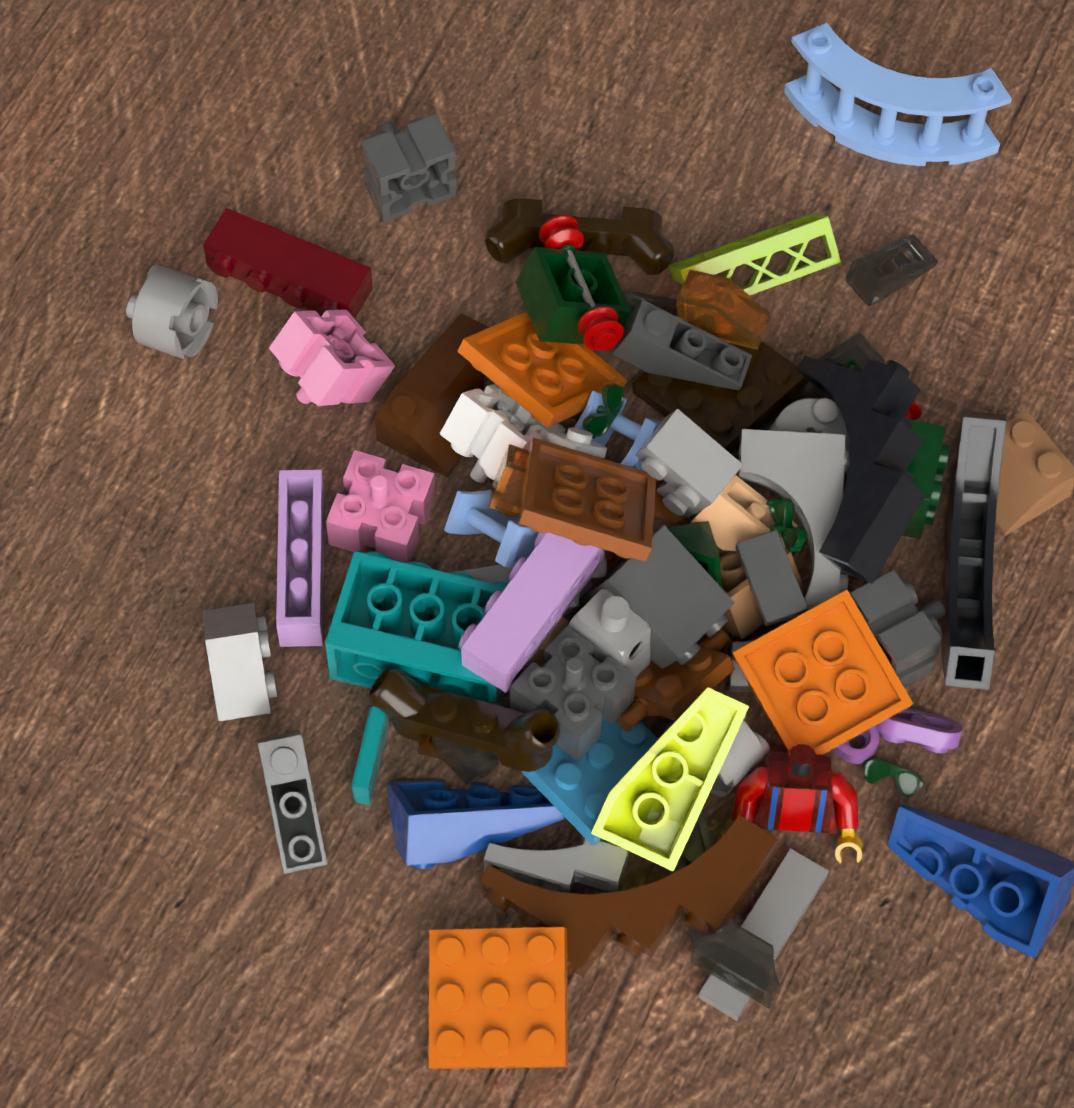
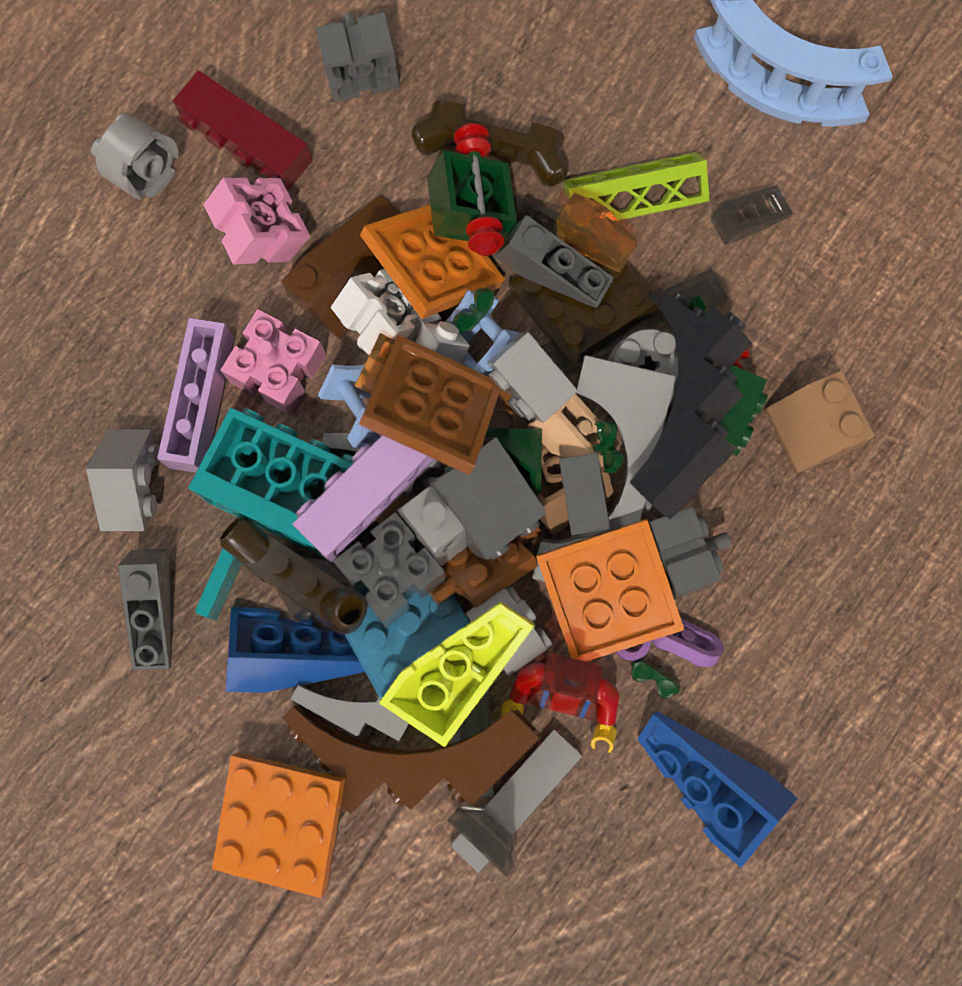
camera: 15 degrees right, 15 degrees up
(968, 568) = (761, 500): black arch -> none

